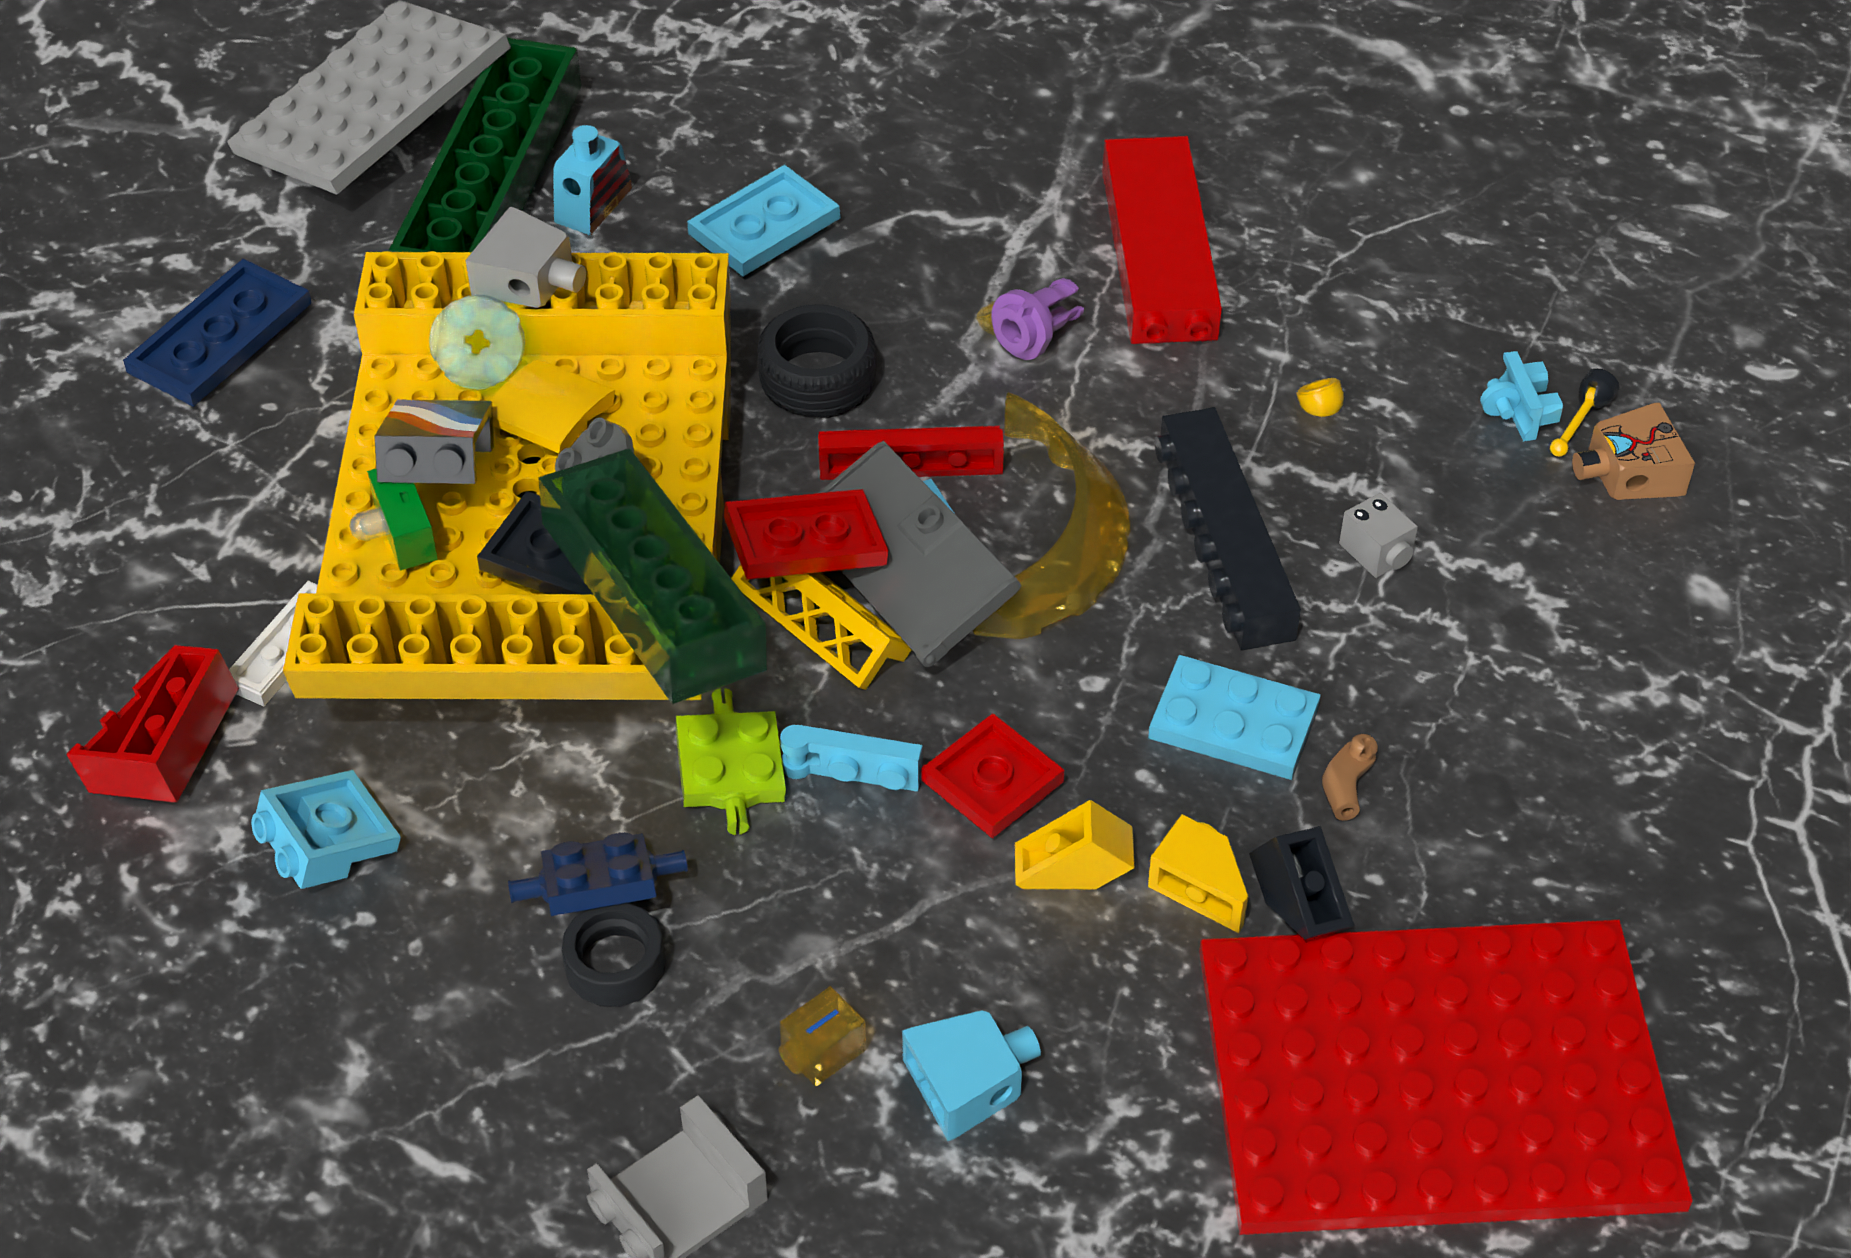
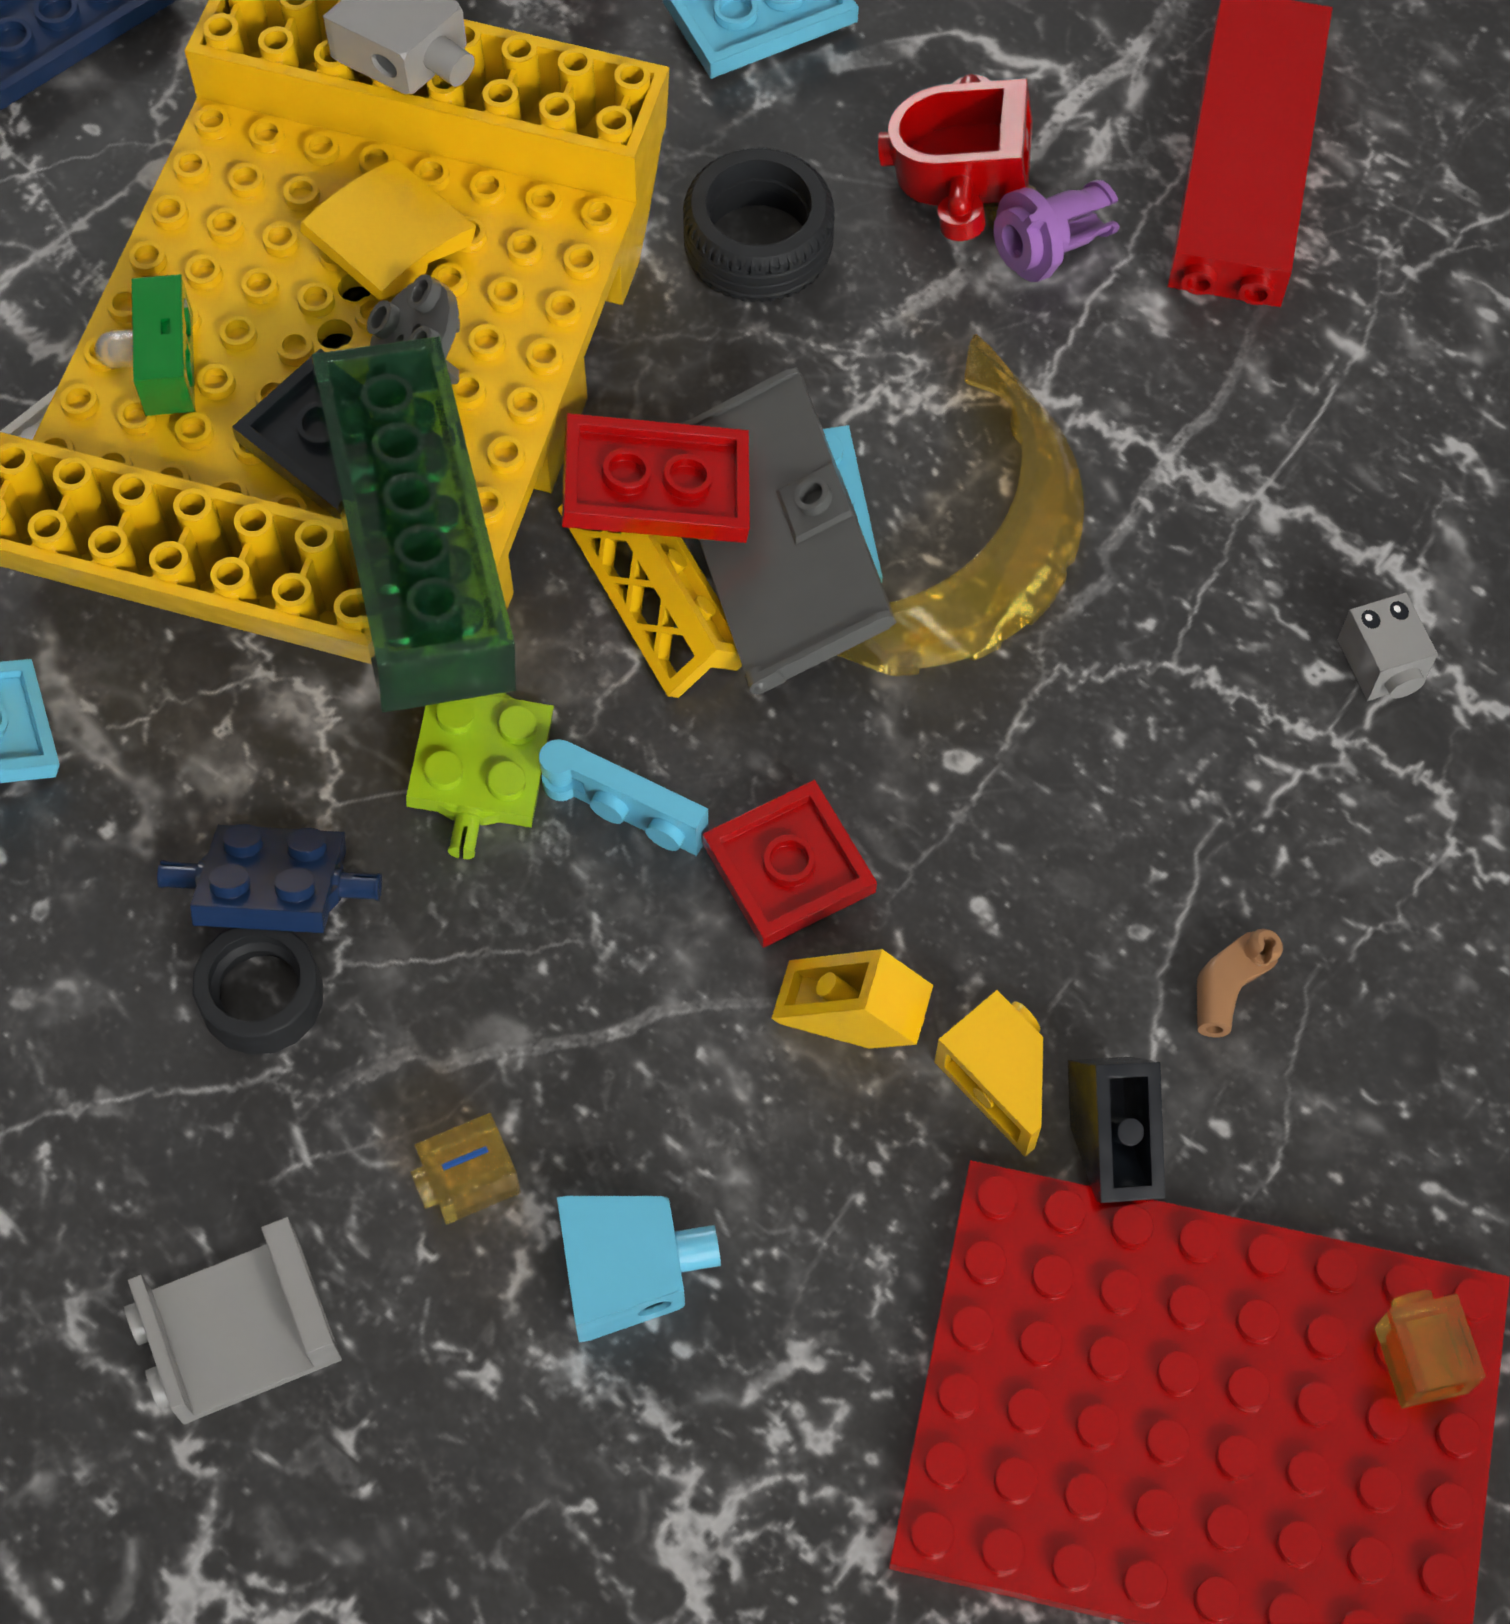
camera: 15 degrees right, 15 degrees up
(433, 441) = (216, 251): panel -> none
(455, 356) = (353, 107): clear light blue plate -> none
(924, 450) = (842, 378): red fence -> none
(949, 280) = (961, 148): none -> red piece
(1227, 529) = (1197, 590): black brick -> none
(1234, 717) = (1119, 856): medium azure plate -> none
(1321, 397) = (1385, 423): yellow piece -> none
(1582, 970) = (1428, 1348): none -> clear yellow brick

